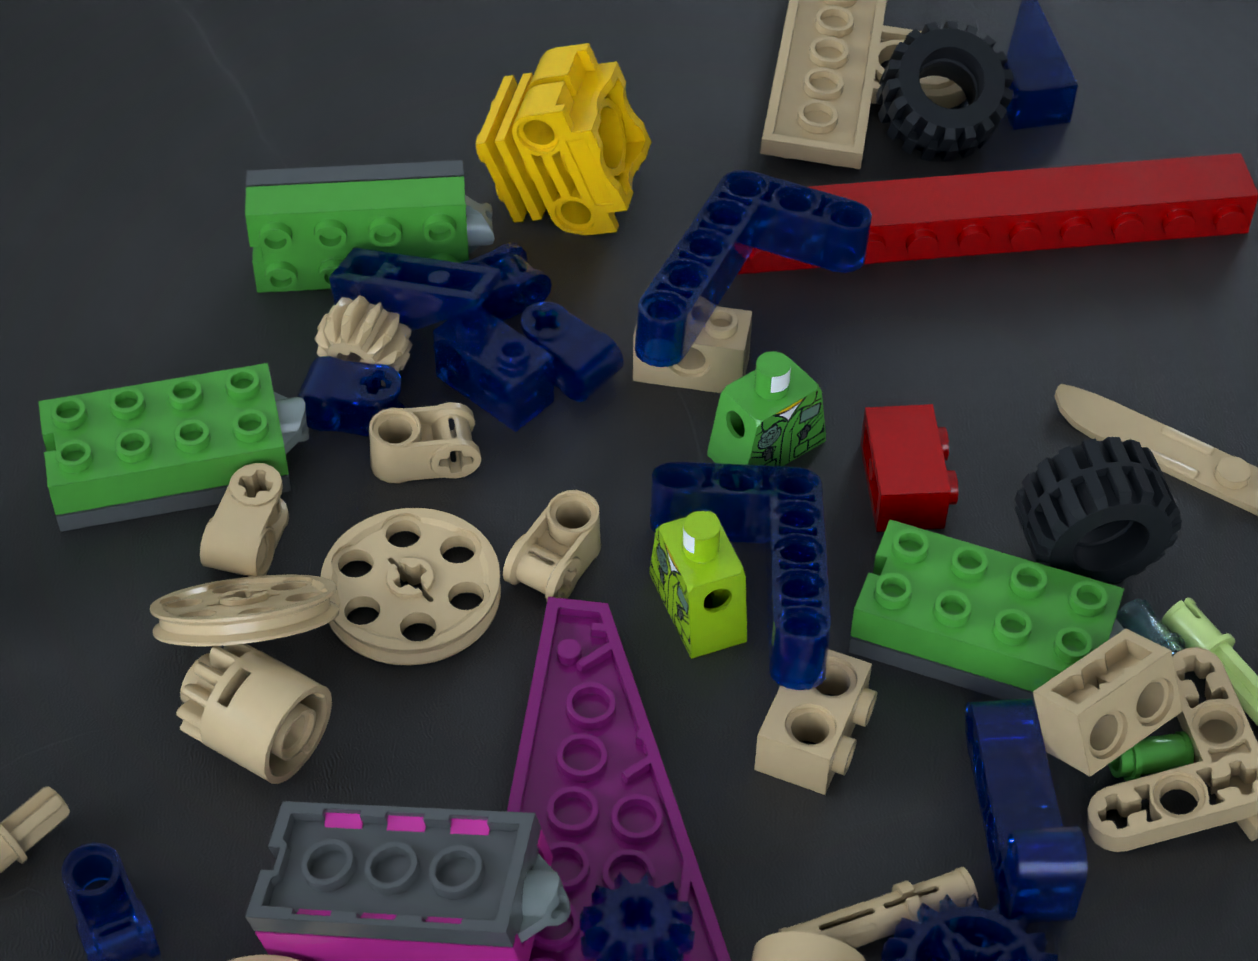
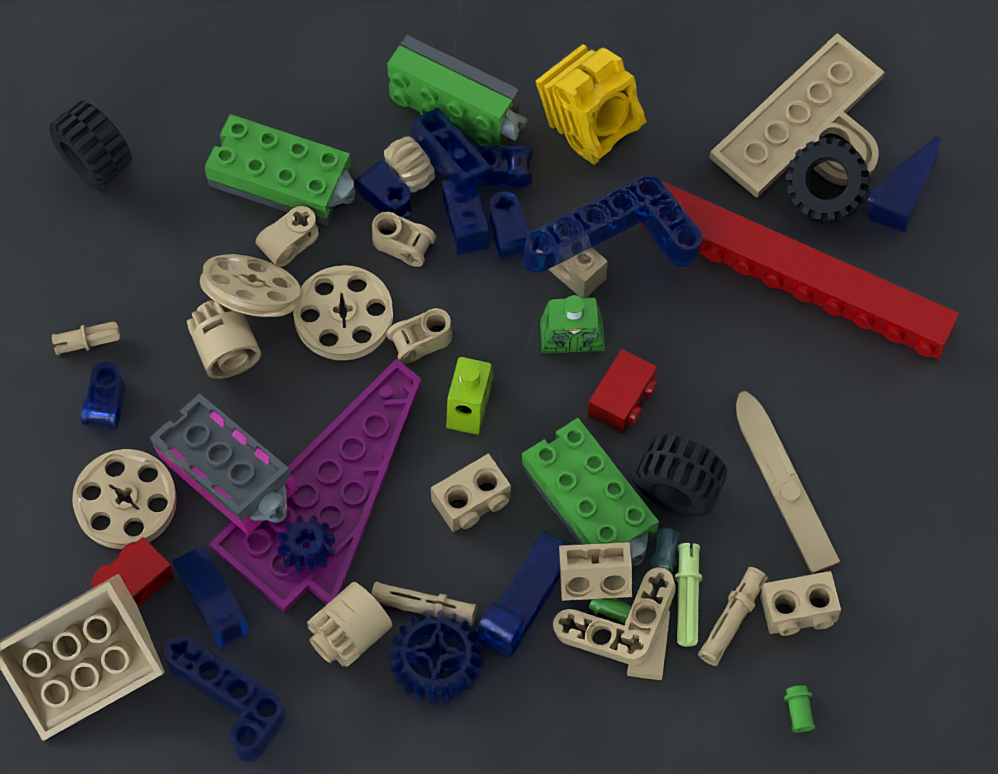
camera: 35 degrees right, 15 degrees up
(786, 513) = (538, 386): clear blue beam -> none

